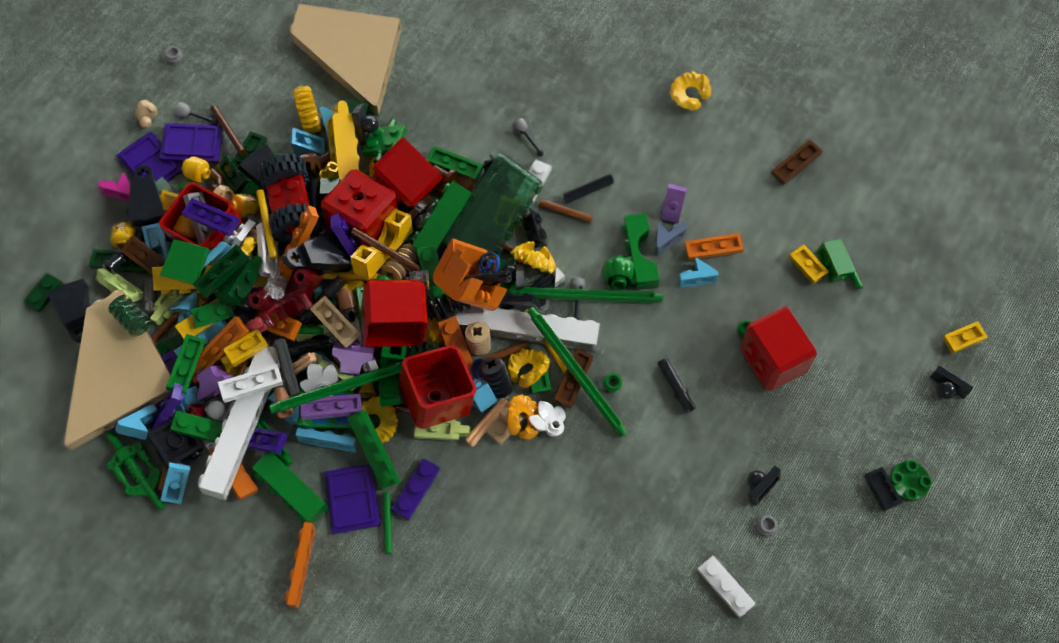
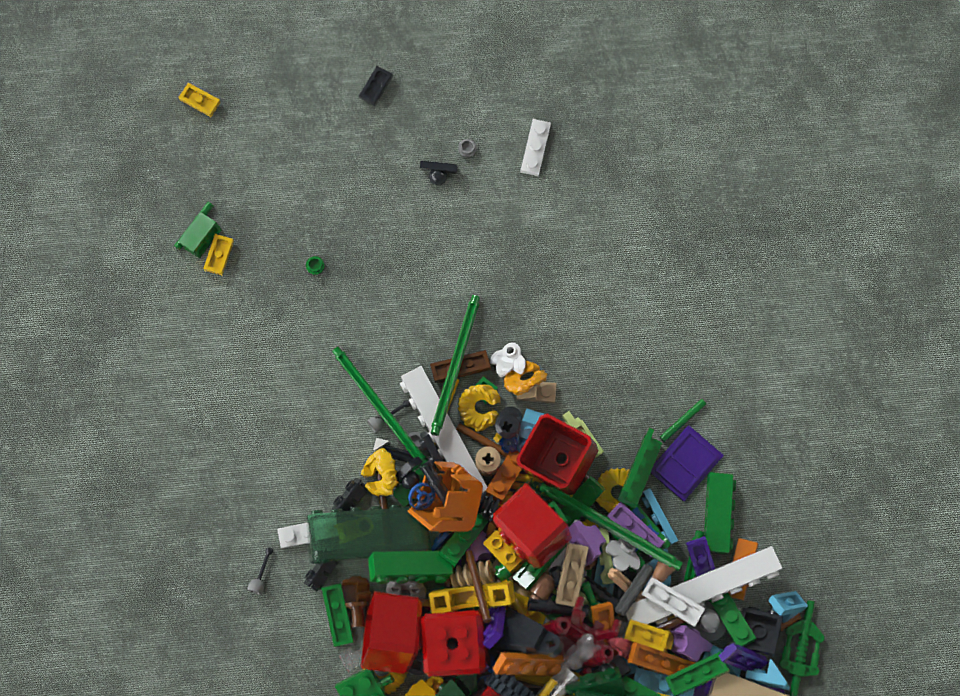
camera: 130 degrees left, 10 degrees up
(196, 409) = (722, 639): dark red plate -> none
(298, 574) = (773, 452): orange plate -> none
(416, 489) = (640, 419): dark purple plate -> none
(422, 275) = (481, 541): clear tile -> none
(477, 433) = (546, 406): light nougat axle -> none
(567, 211) = (311, 483): dark orange bar -> none
(588, 188) = (276, 482): black axle -> none
(615, 377) = (440, 330): green plate -> none
(618, 272) = (339, 397): green plant -> none
(636, 230) = (290, 411): green arch -> none
(666, 238) = (281, 382): sand blue slope -> none
(673, 203) = (239, 397): medium lavender brick -> none
(675, 383) = (405, 285): black pin -> none
(687, 80) = (108, 474): yellow piece -> none
(701, 275) = (292, 330): medium azure slope -> none
(714, 246) = (257, 338): orange plate -> none
(777, 349) = (323, 222): red plate -> none
(796, 162) = (122, 325): reddish brown plate -> none
(910, 480) = (353, 71): green dish -> none
(950, 384) = (252, 87): black tile -> none

